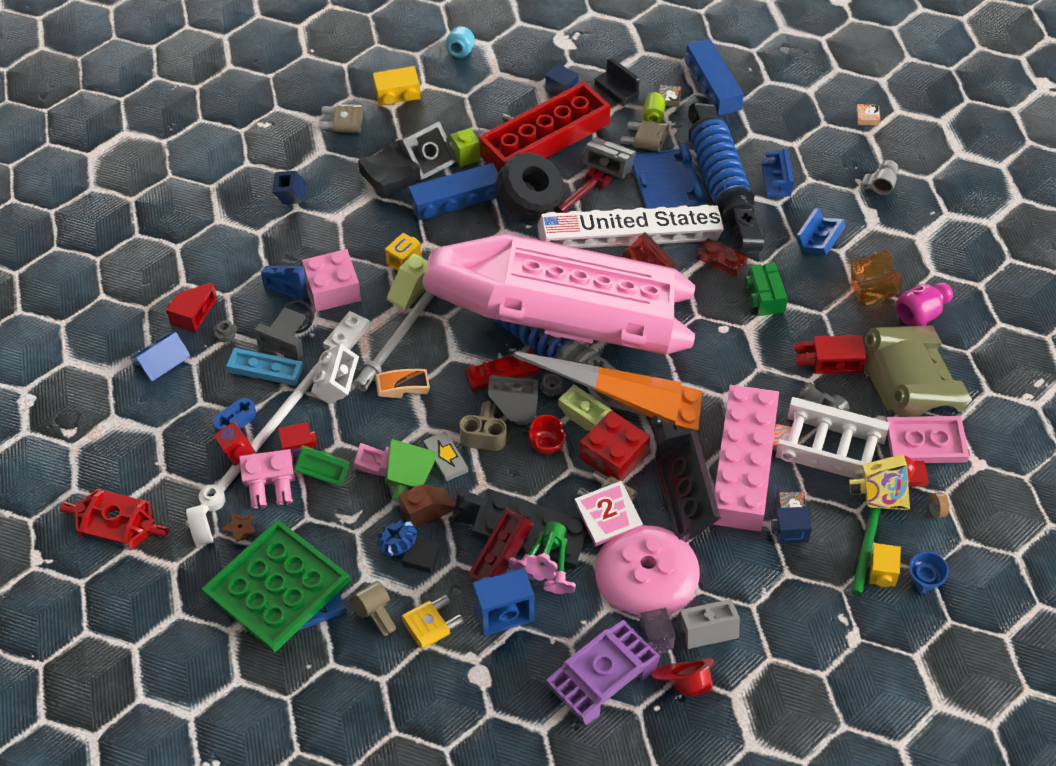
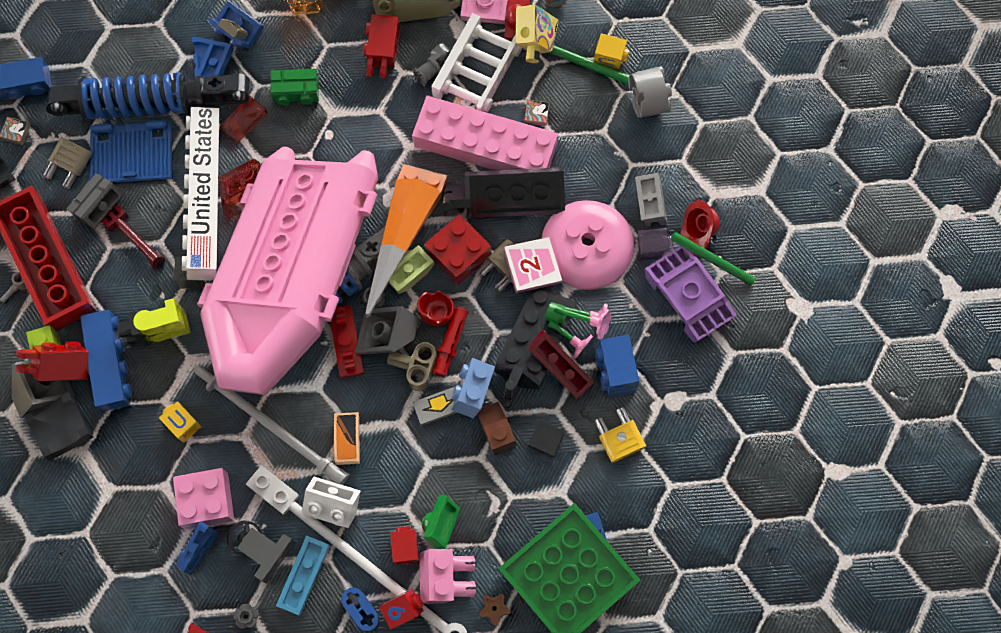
camera: 80 degrees left, 20 degrees up
(289, 187) = (64, 535): dark blue brick -> none
(371, 460) = (436, 467): bright pink slope -> none
(371, 603) = (603, 484): dark tan beam -> none
(393, 546) = (529, 447): blue gear -> none
(407, 466) = (458, 439): bright green torso -> none
(408, 282) = (221, 418): yellowish green slope -> none
(444, 147) = (55, 361): none -> red hinge
(463, 472) = (473, 387): none -> medium blue brick
(484, 450) = (448, 347): none -> red pin
(491, 213) = (155, 324): none -> neon yellow hips
(518, 197) = (124, 265): black tyre -> none
(648, 689) = (712, 258): none -> green bar
(654, 108) = (33, 147): lime brick -> none
(778, 174) = (150, 48): blue hinge -> none
(778, 221) = (211, 57): none -> blue wing
(791, 525) = (561, 115): dark blue brick -> none
(811, 226) = (233, 29): none -> dark tan tile
(839, 602) = (650, 92): none -> light grey brick
(928, 571) = (620, 19): blue hat -> none

